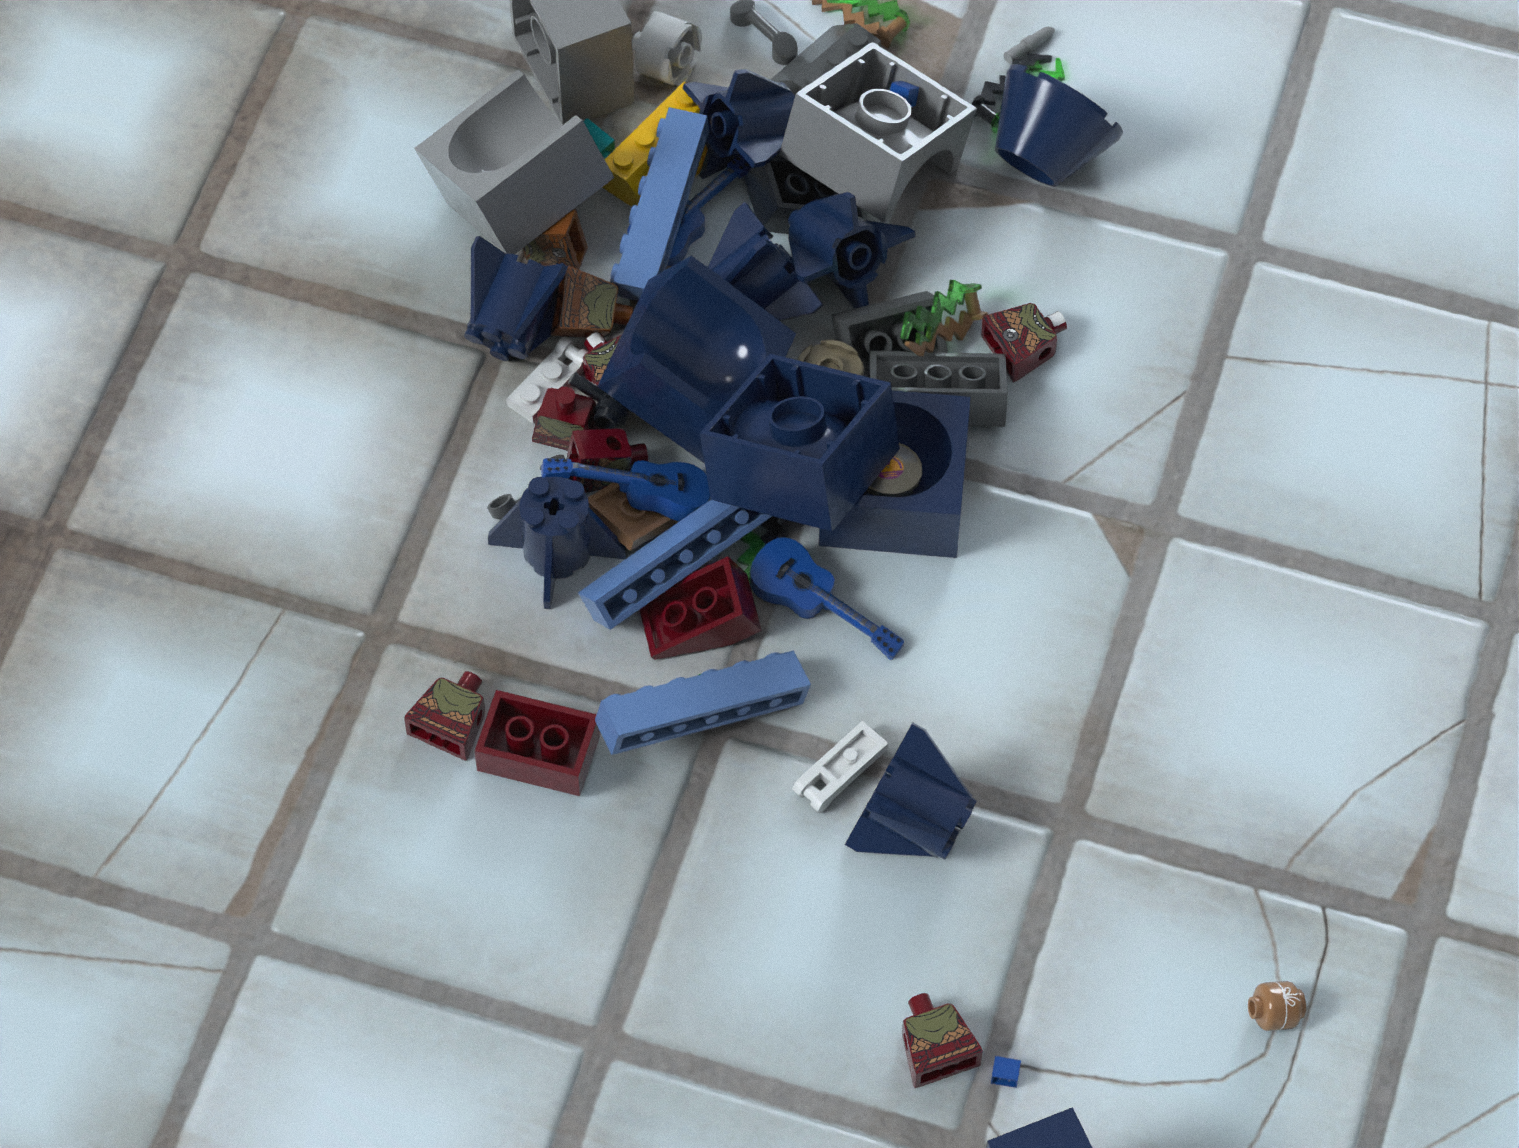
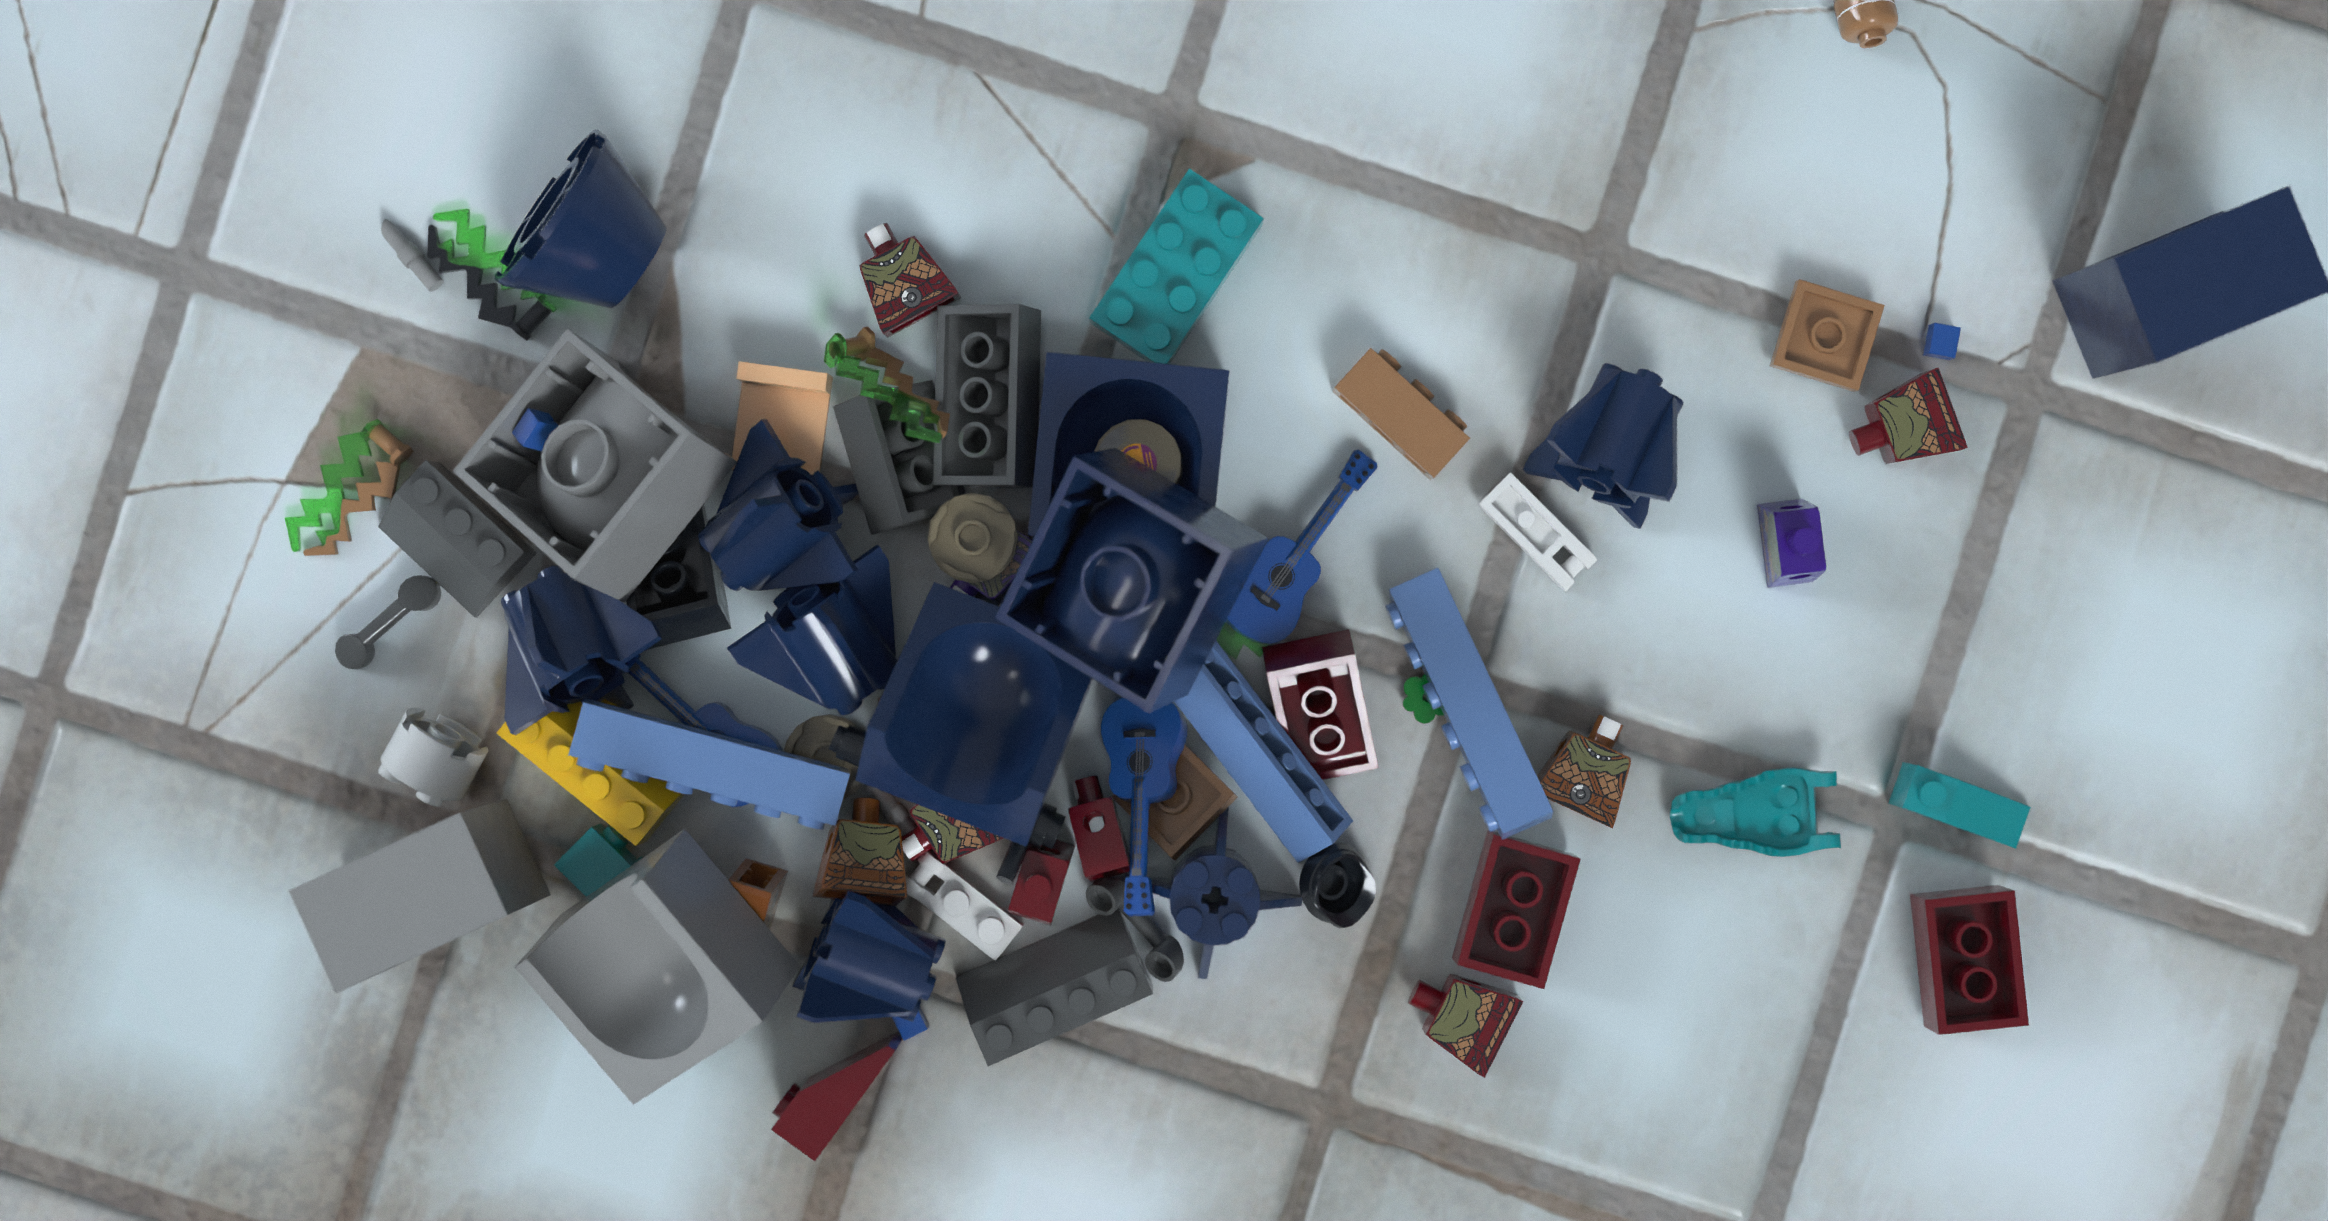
camera: 90 degrees left, 30 degrees up
(407, 287) = (817, 1109): none -> dark red slope
(462, 348) = (909, 1029): none -> blue piece
(483, 434) = (1053, 986): none -> dark grey slope
(485, 1080) = (1969, 959): none -> dark red brick
(558, 622) = (1337, 885): none -> black hat
(611, 930) = (1761, 813): none -> teal animal
(615, 1082) = (1959, 804): none -> teal slope
(644, 800) = (1588, 773): none -> torso
(833, 945) = (1791, 542): none -> dark purple torso
(918, 266) = (792, 402): none -> light nougat panel
(933, 668) = (1402, 412): none -> medium nougat brick
(1006, 979) = (1827, 335): none -> medium nougat plate
(1038, 513) = (1176, 269): none -> teal brick

